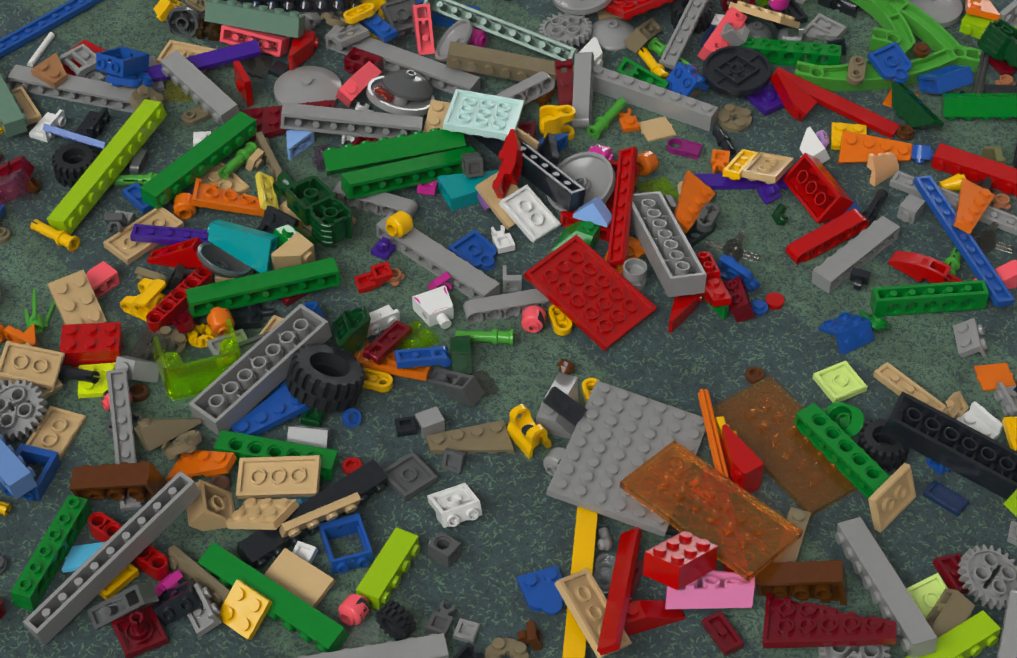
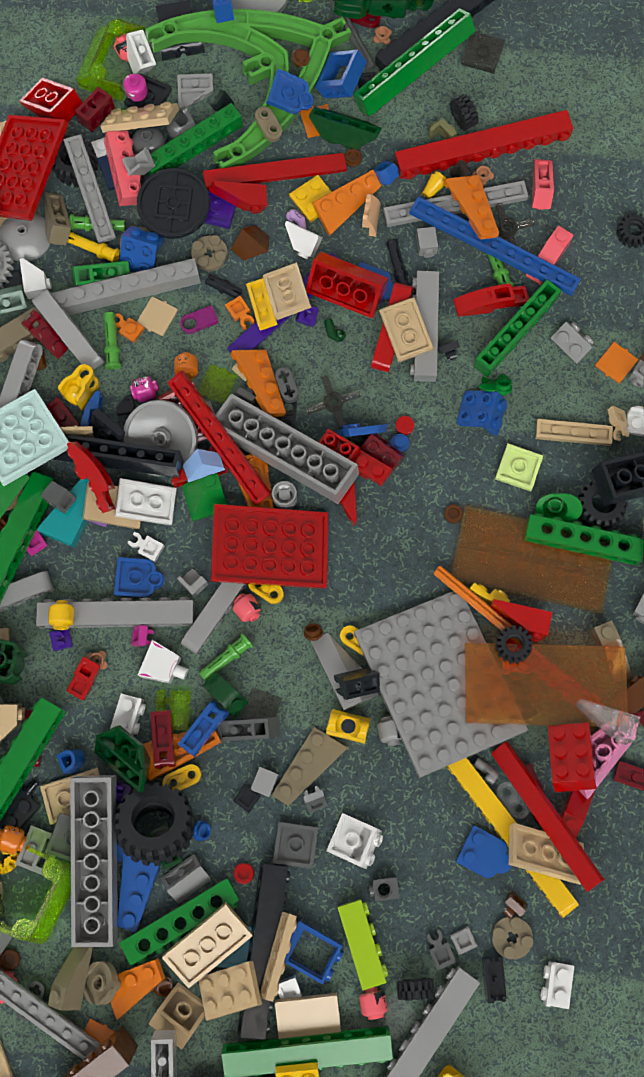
camera: 40 degrees left, 30 degrees up
(709, 470) = (522, 636): none -> black tyre
(739, 559) = (613, 722): none -> clear slope
(771, 128) = (251, 243): none -> reddish brown slope
(835, 239) = (406, 329): none -> tan tile

